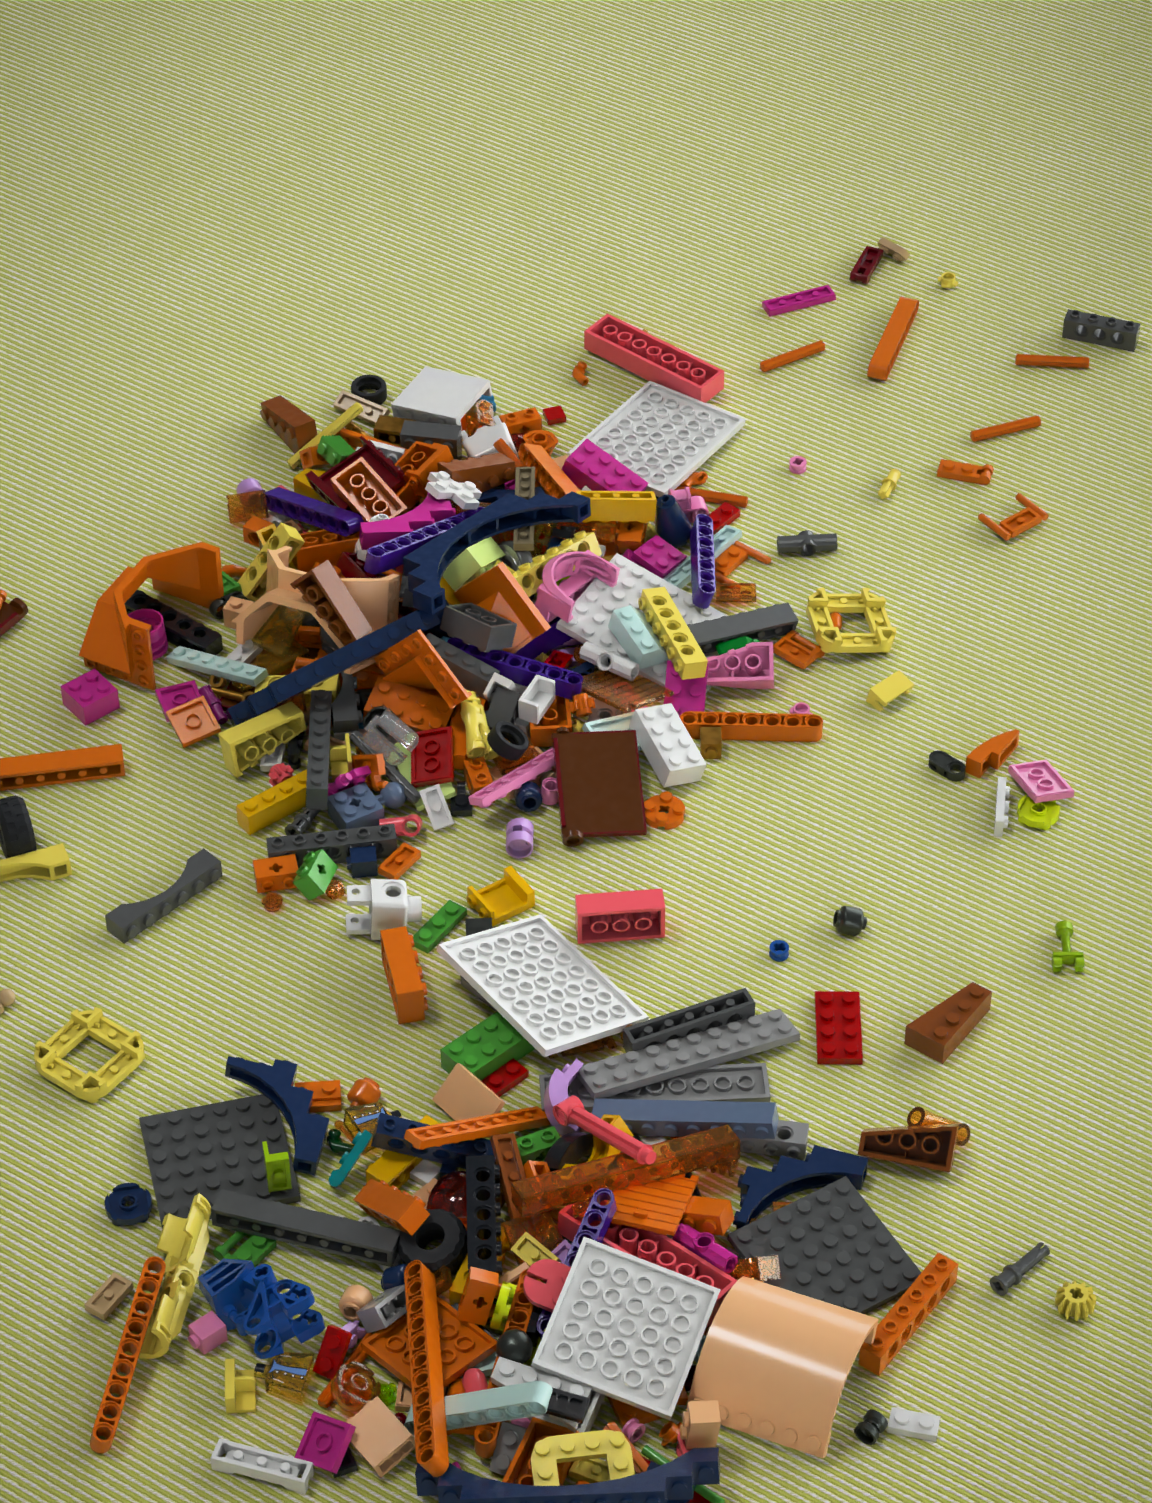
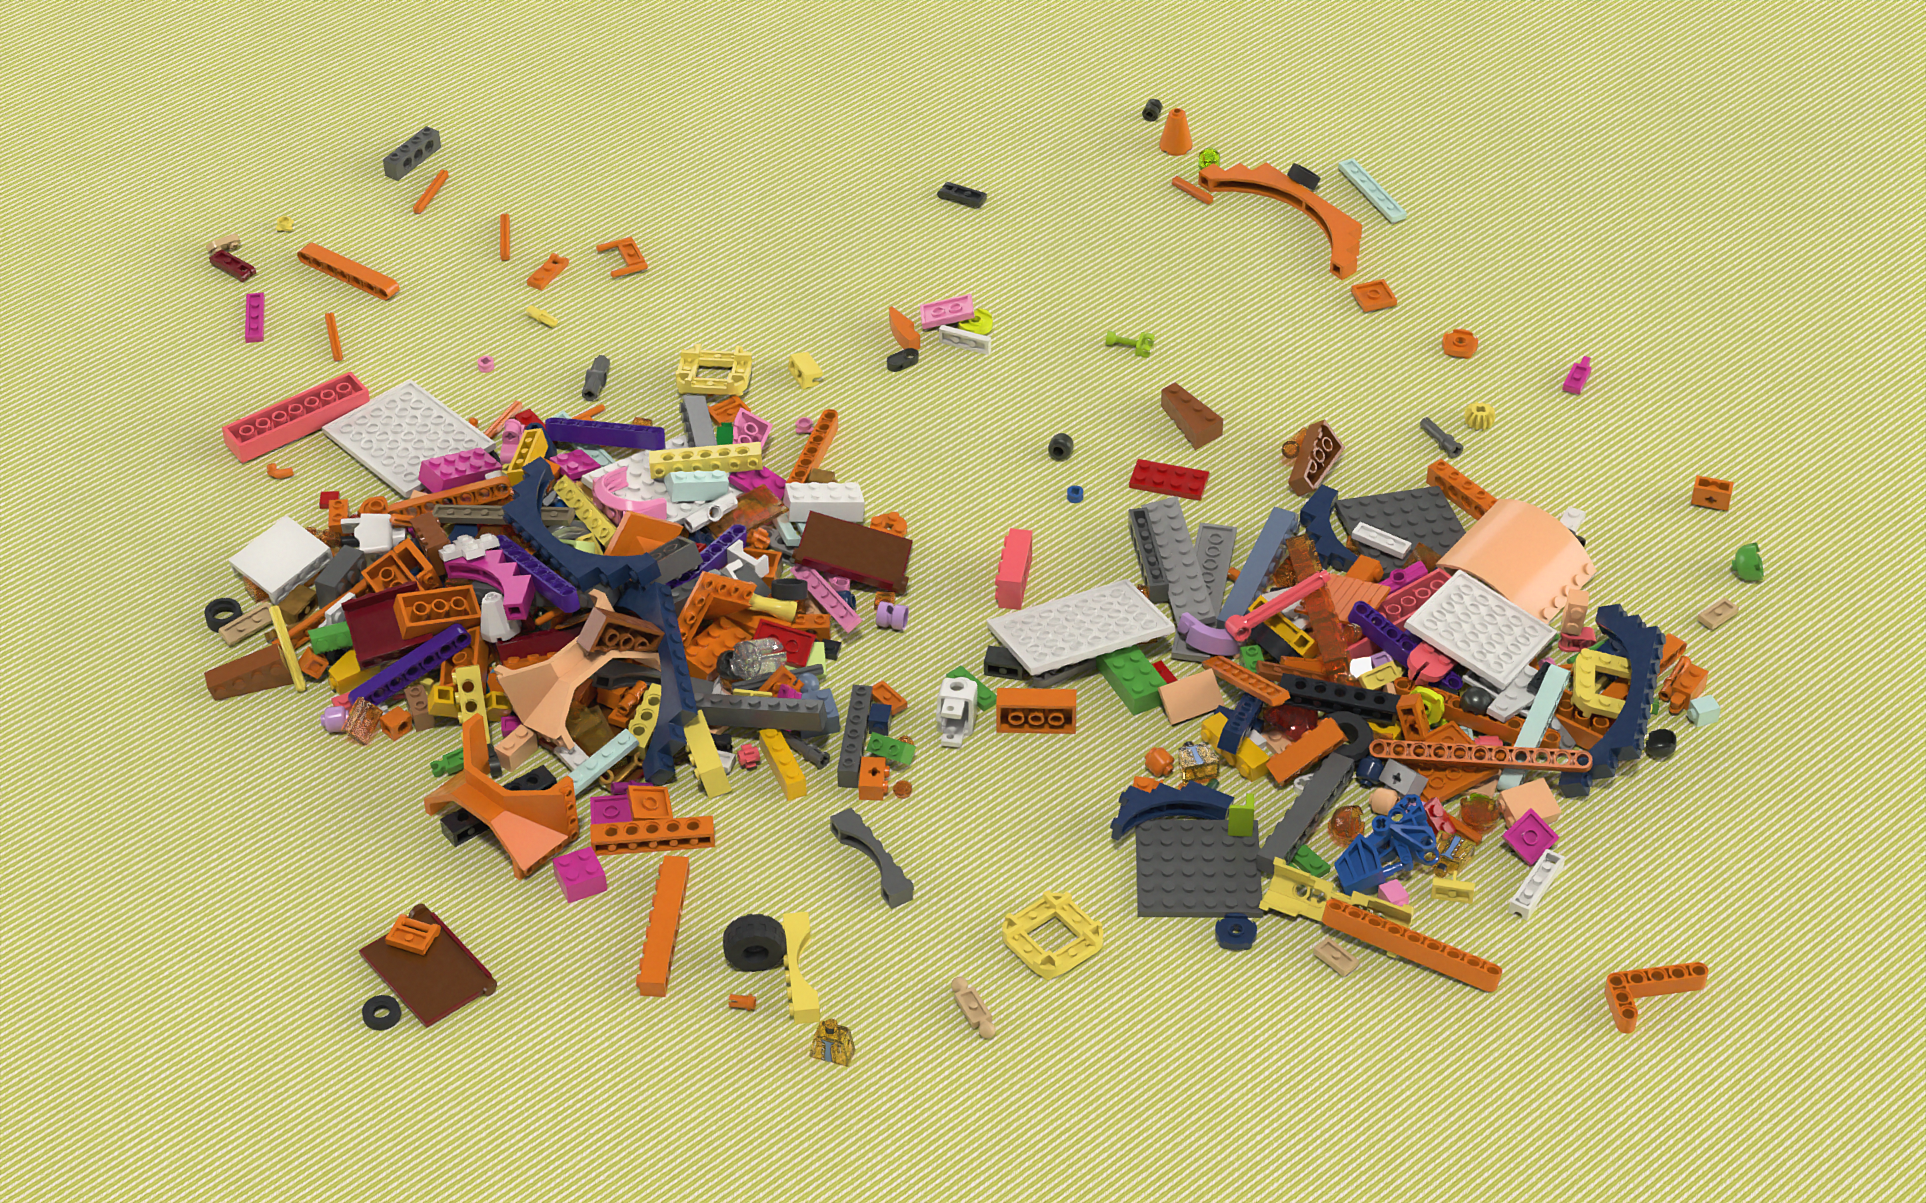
camera: 75 degrees left, 0 degrees up
(156, 735) = (652, 835): none -> orange brick
(234, 570) = (442, 749): orange arm -> none
(305, 1268) = (1346, 824): none -> clear orange cylinder
(349, 1159) = (1237, 773): teal hinge -> none
(401, 824) = (845, 683): coral piece -> none
(436, 807) = (836, 658): white plate -> none
(502, 898) = (955, 641): yellow panel -> none
(545, 830) = (885, 597): none -> clear orange plate
(669, 1433) = (1549, 649): orange plate -> none
(777, 1223) = (1381, 540): none -> white plate

